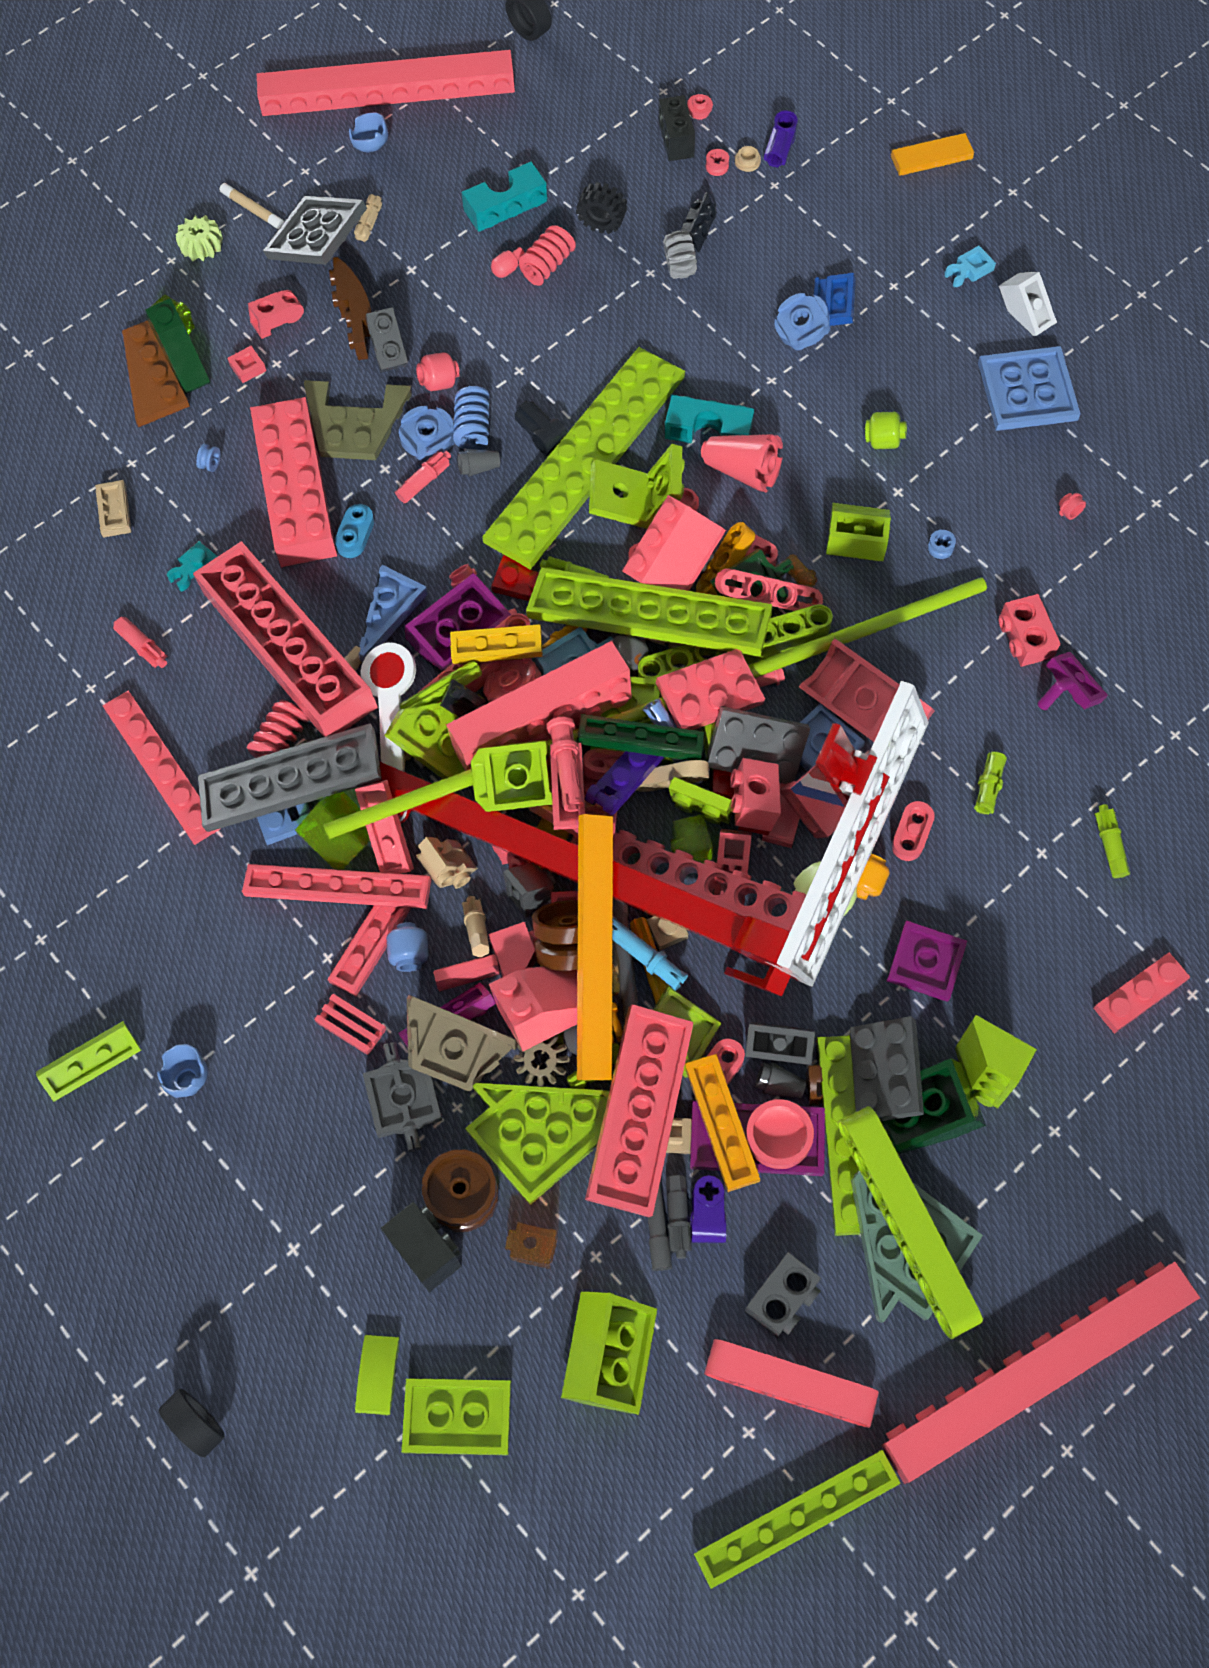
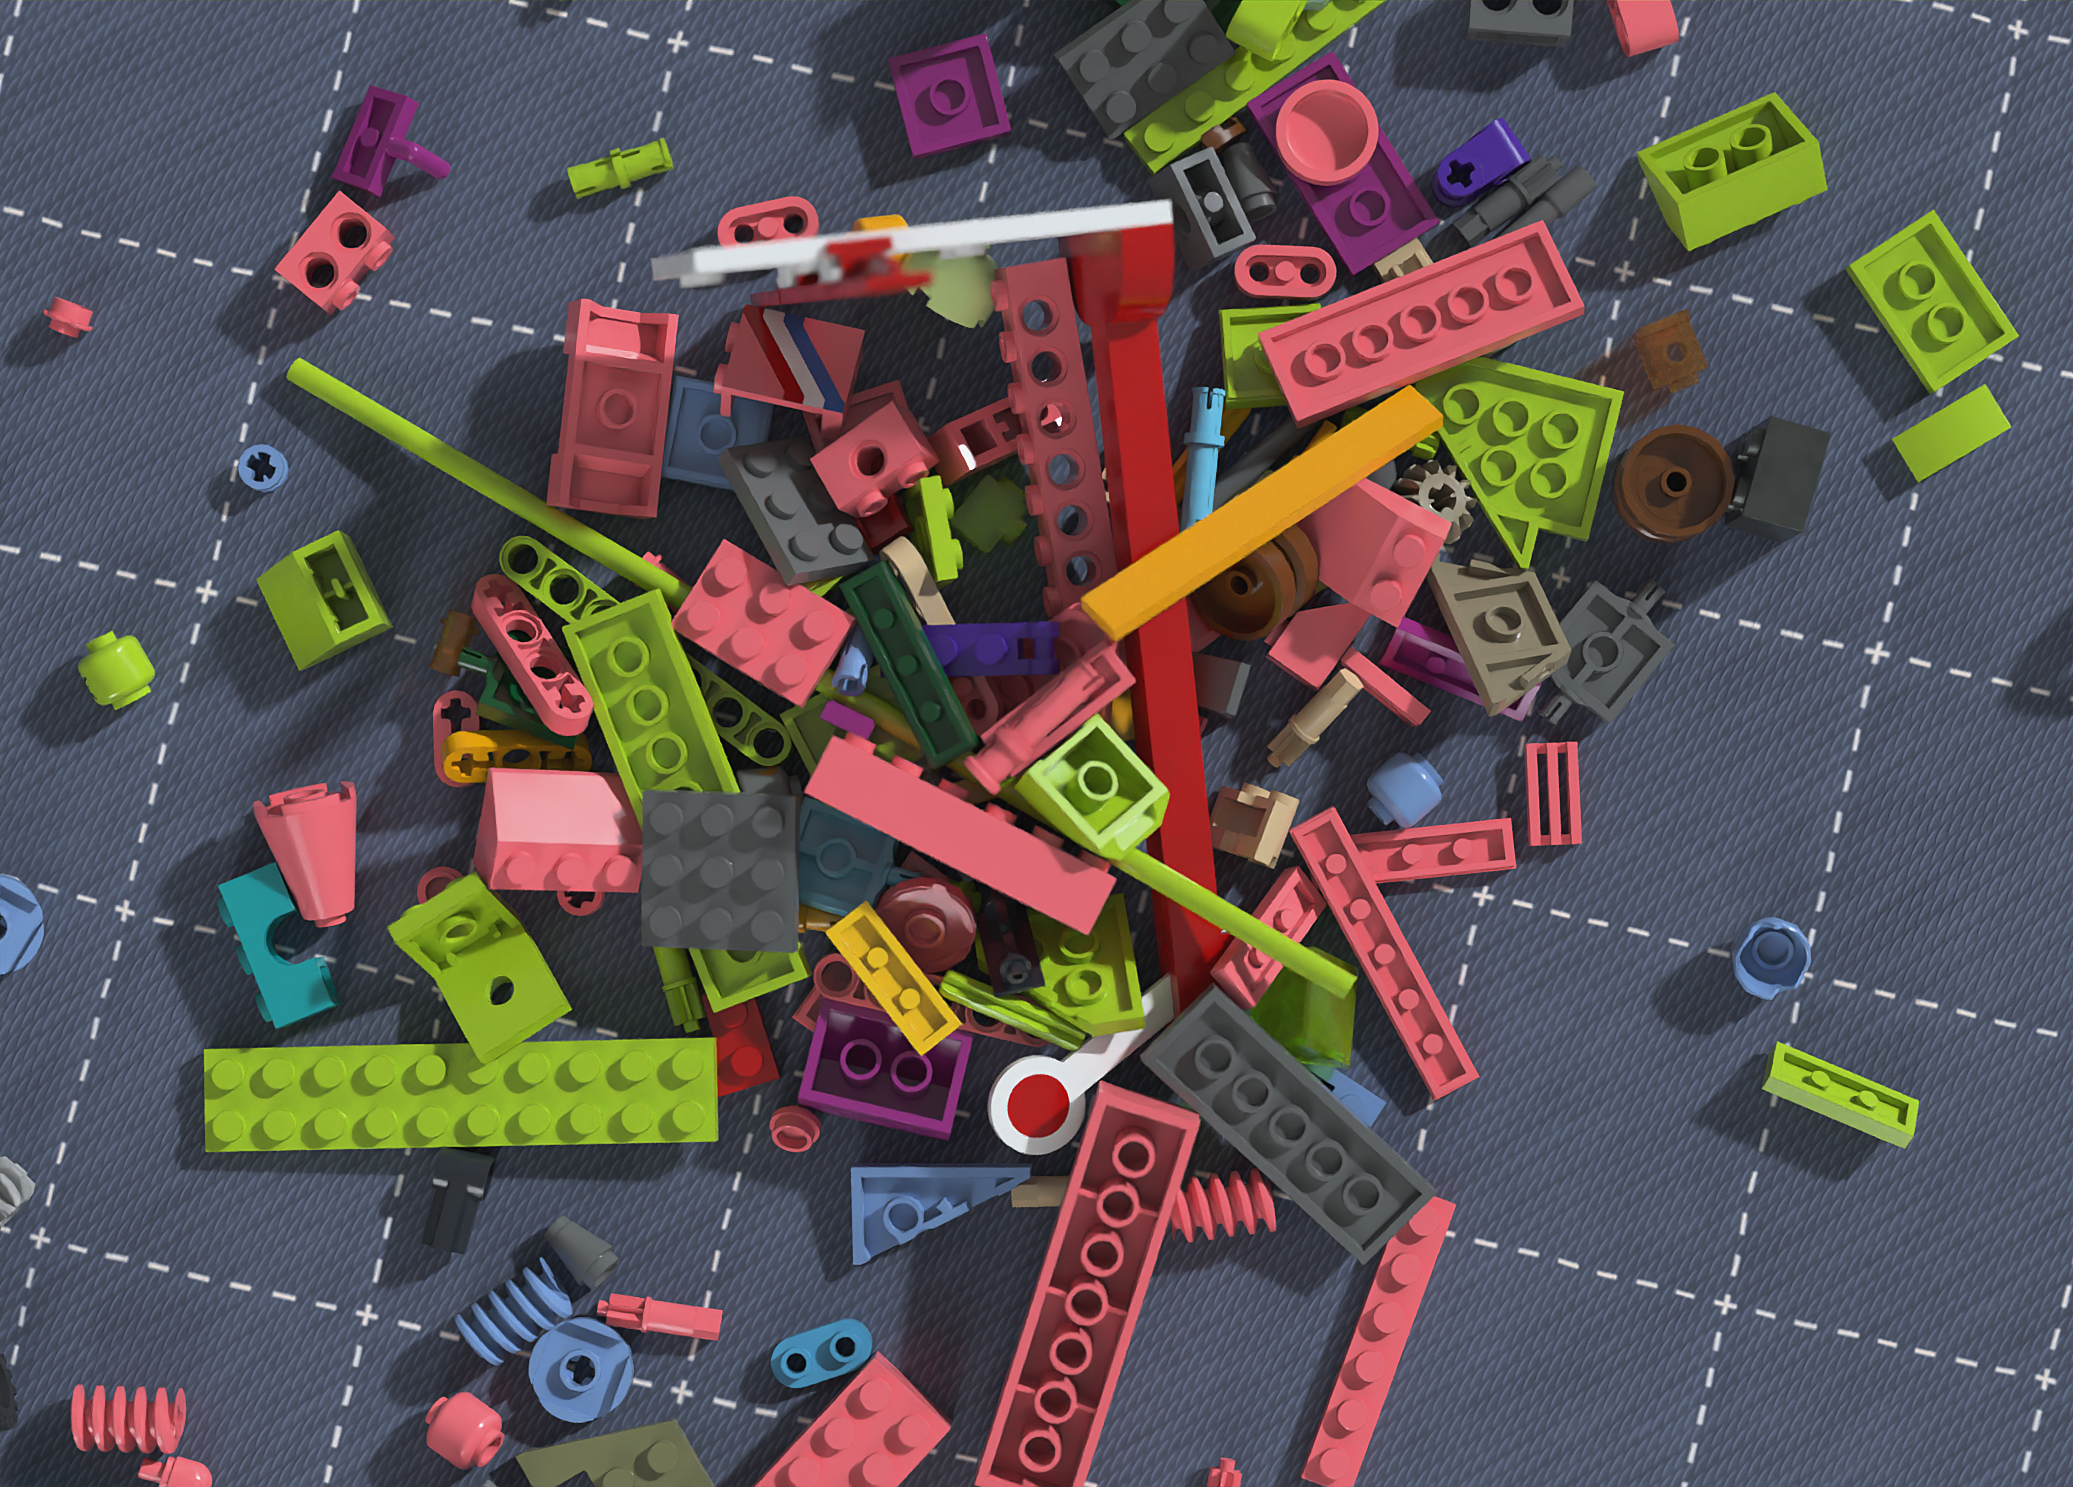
camera: 125 degrees left, 20 degrees up
(604, 601) = (720, 870): none -> dark grey plate
(634, 697) = (848, 720): none -> magenta tile
(722, 1123) = (1361, 214): light orange plate -> none

